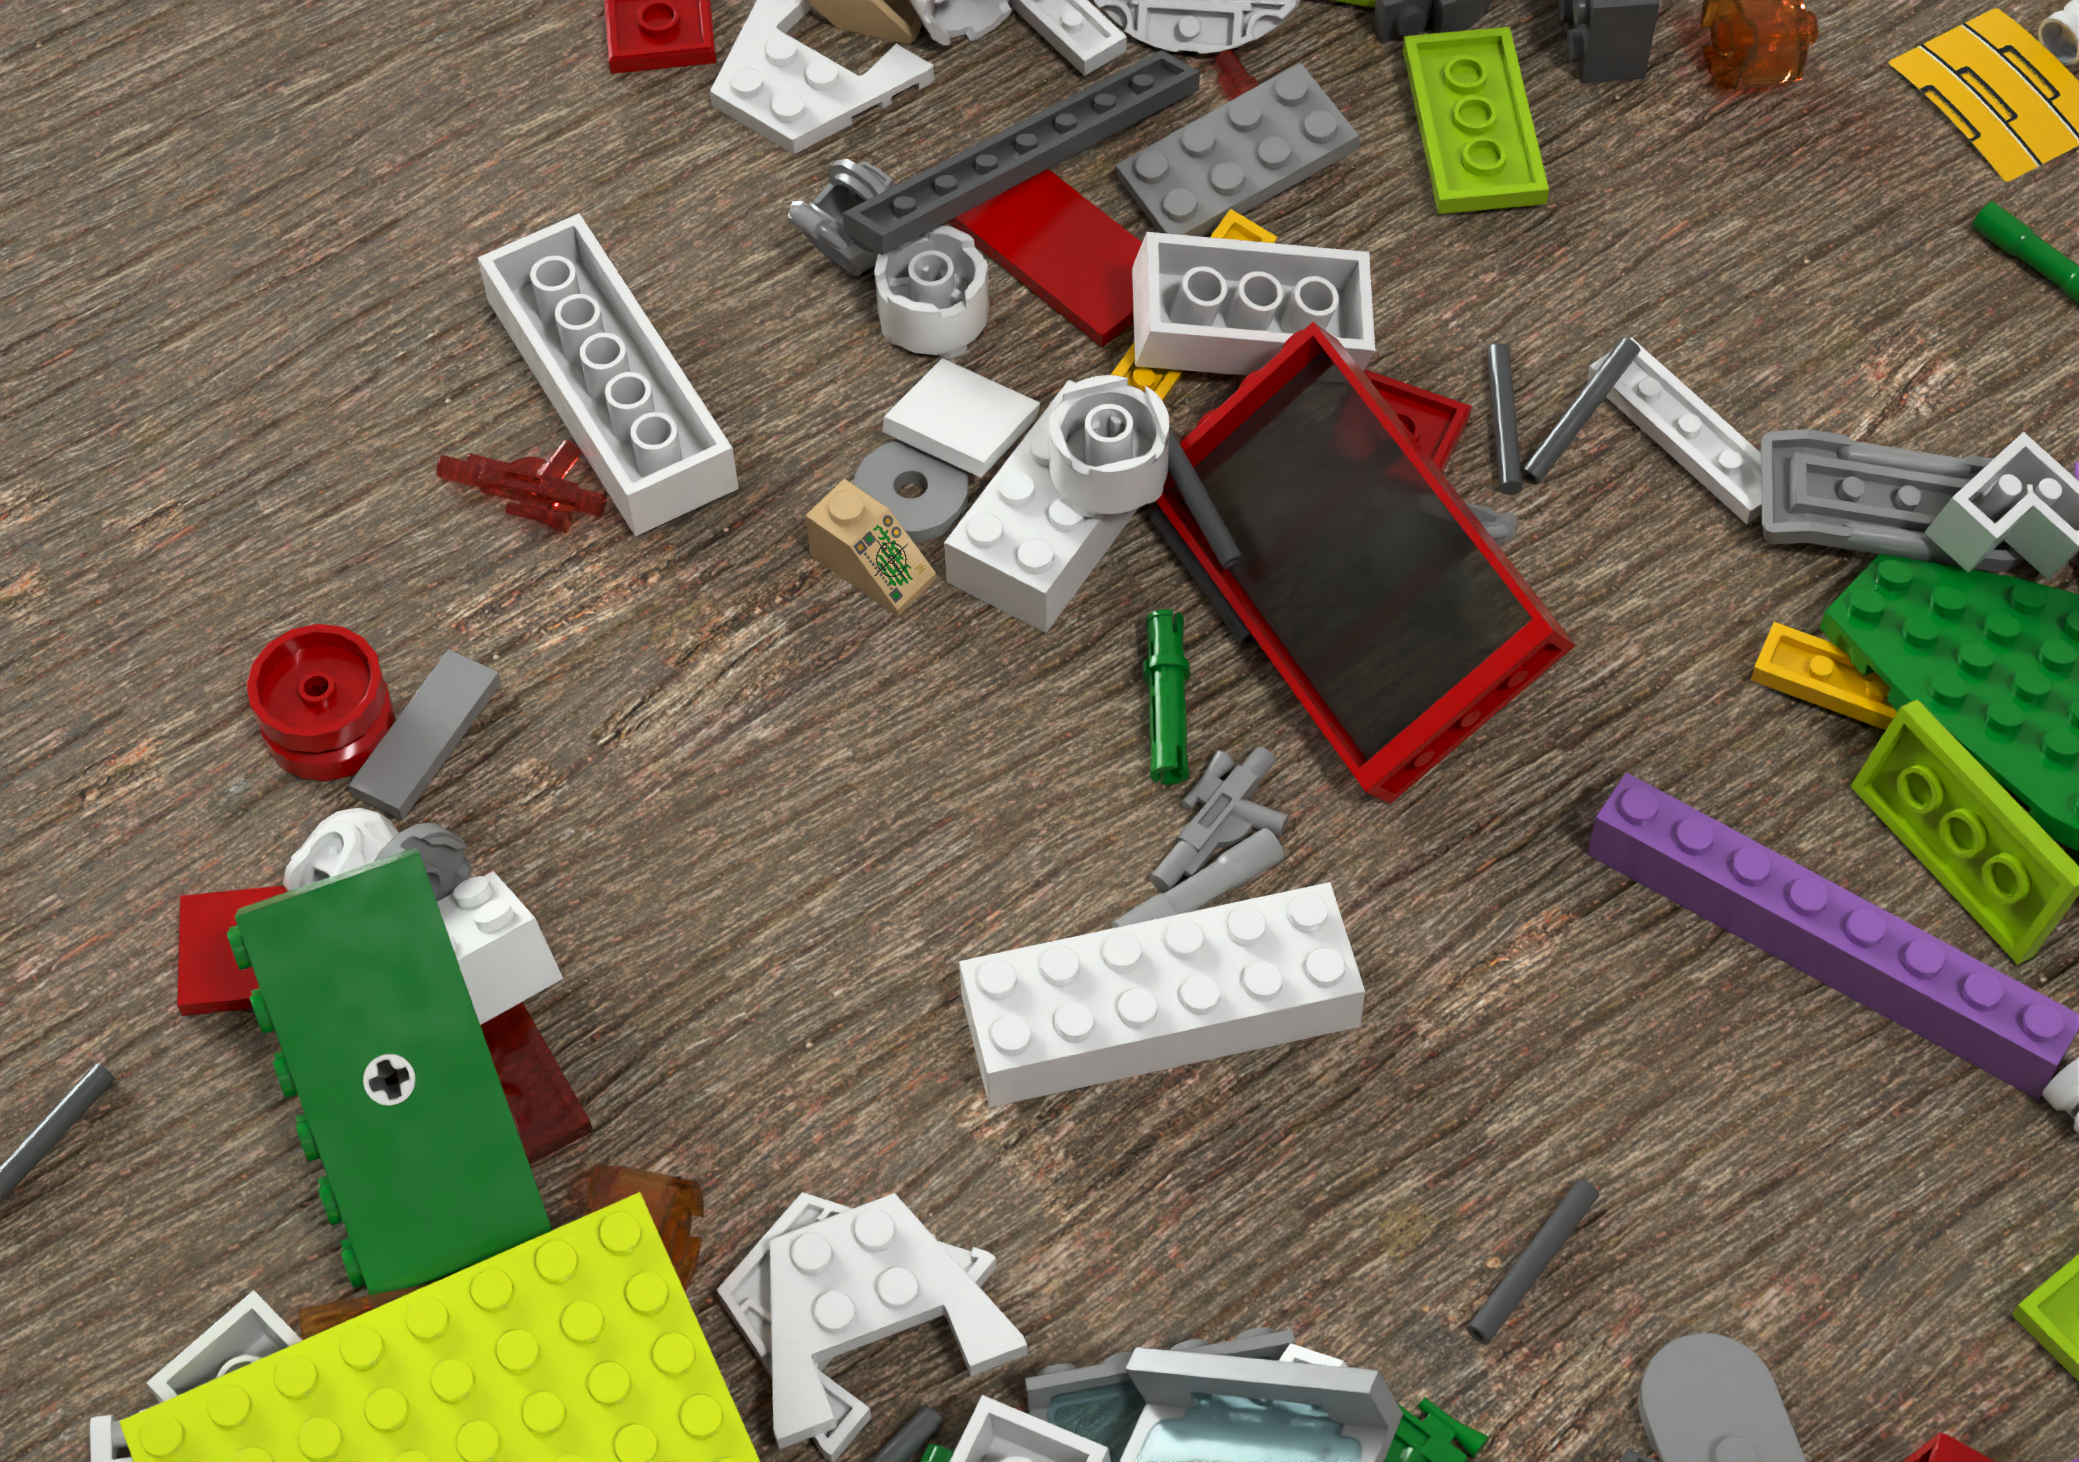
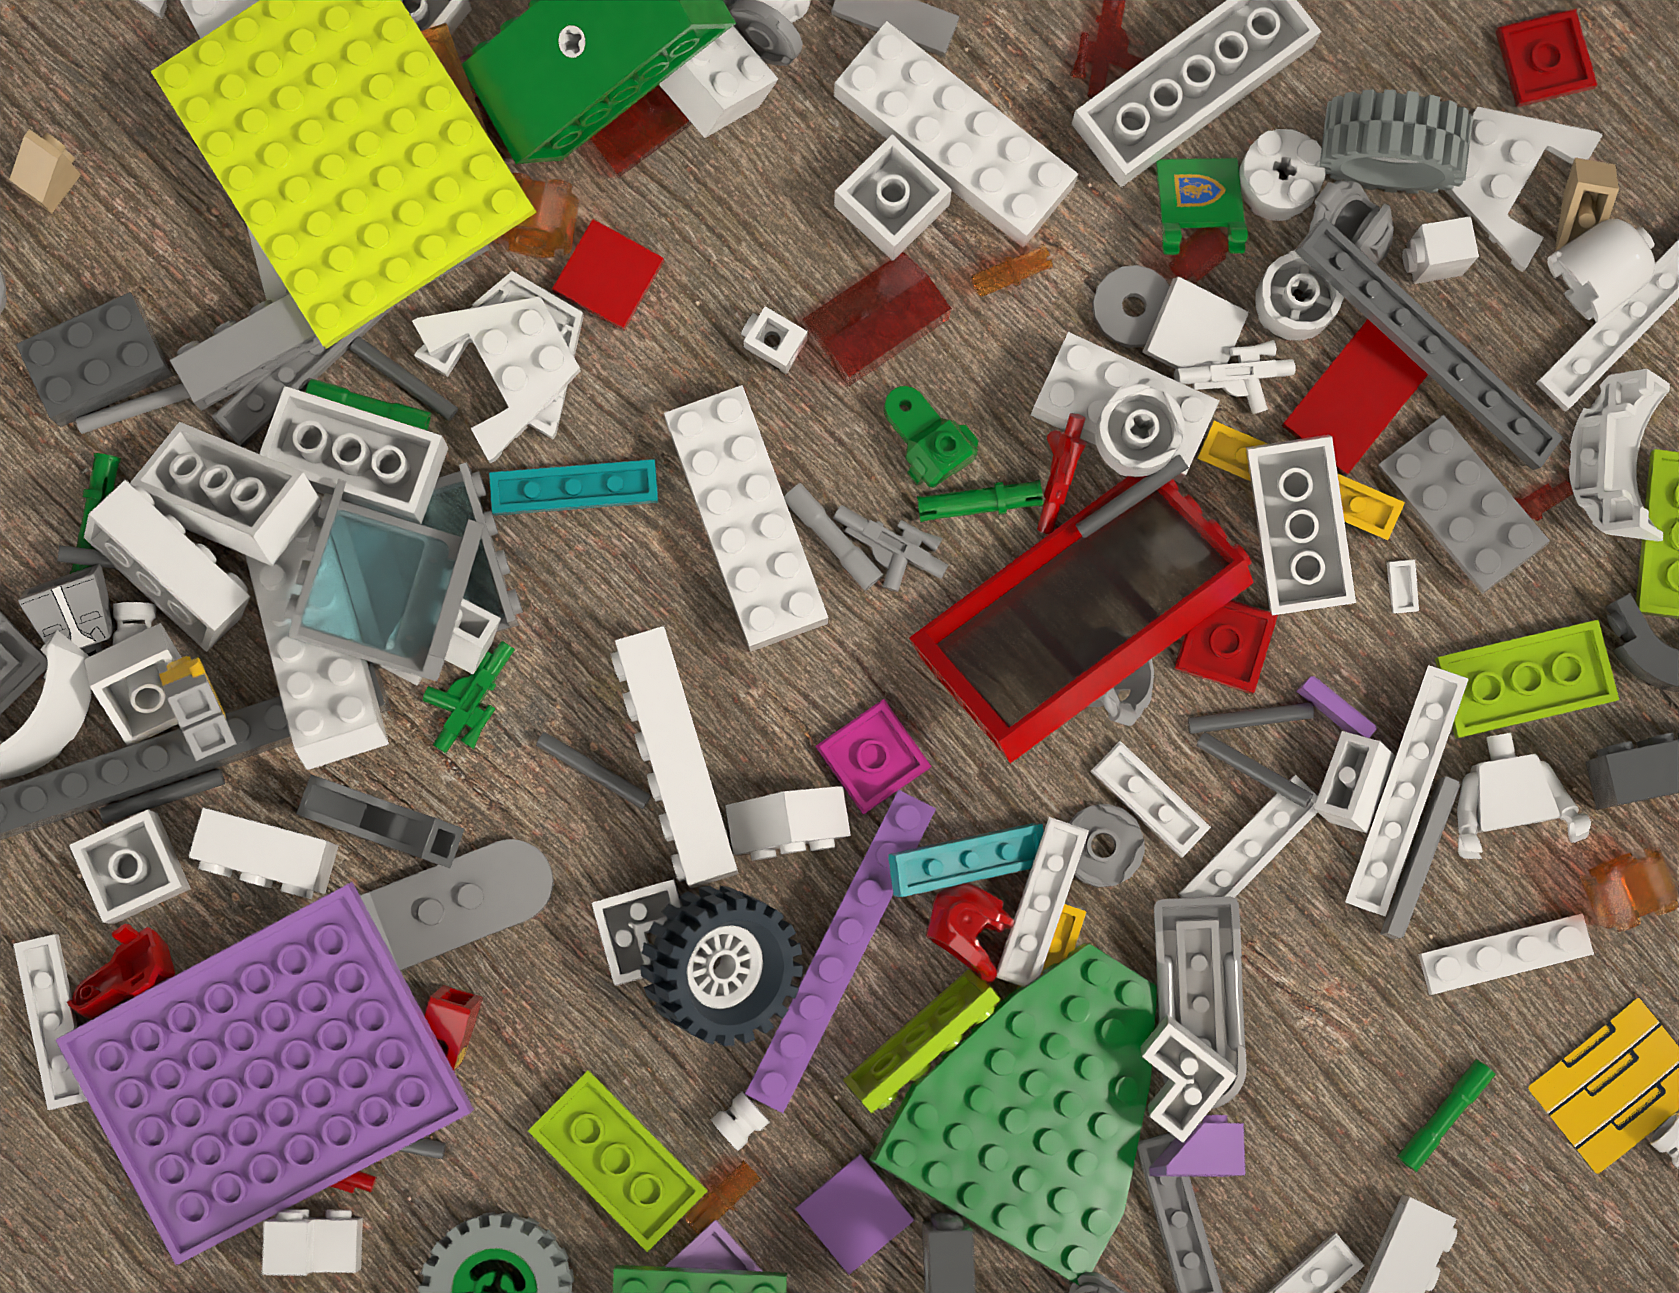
camera: 75 degrees right, 25 degrees up
(622, 668) = (955, 134): none -> white brick
(704, 747) = (892, 197): none -> white brick
(747, 1158) = (608, 274): none -> red tile
(750, 140) = (1396, 141): none -> light grey wheel
(760, 295) = (1287, 152): none -> white brick
(776, 386) = (1200, 196): none -> green flag
(835, 623) = (1011, 271): none -> clear orange axle
(851, 400) = (1199, 254): none -> clear red brick
(867, 547) = (1072, 284): tan slope -> none
(877, 794) = (878, 318): none -> clear red slope
(893, 913) = (770, 323): none -> white brick
(899, 121) = (1441, 250): none -> white brick
(1031, 372) = (1241, 377): none -> white piece
(1078, 738) = (934, 444): none -> green piece
(1079, 1239) = (573, 487): none -> teal plate
(1133, 579) = (1066, 452): none -> red piece
(1337, 234) = (1403, 586): none -> white piece
(1502, 315) = (1335, 708): none -> medium lavender tile
(1532, 1115) = (676, 758): none -> white brick
(1533, 874) = (873, 756): none -> dark pink tile
(1605, 296) = (1354, 782): none -> white brick
(1611, 543) = (1150, 799): none -> white tile
(1619, 247) = (1406, 790): none -> white plate
(1628, 146) = (1512, 794): none -> white torso
(1636, 981) = (788, 822): none -> white brick
(1669, 632) = (1127, 843): none -> light grey tile
(1702, 745) = (964, 859): none -> teal plate
(1708, 248) = (1420, 858): none -> light grey tile
(1764, 670) = (1042, 902): none -> white tile
(1794, 765) = (957, 920): none -> red helmet
(1795, 1220) = (624, 926): none -> white brick
(1833, 183) = (1506, 954): none -> white plate
(1862, 1070) = (738, 931): none -> black wheel

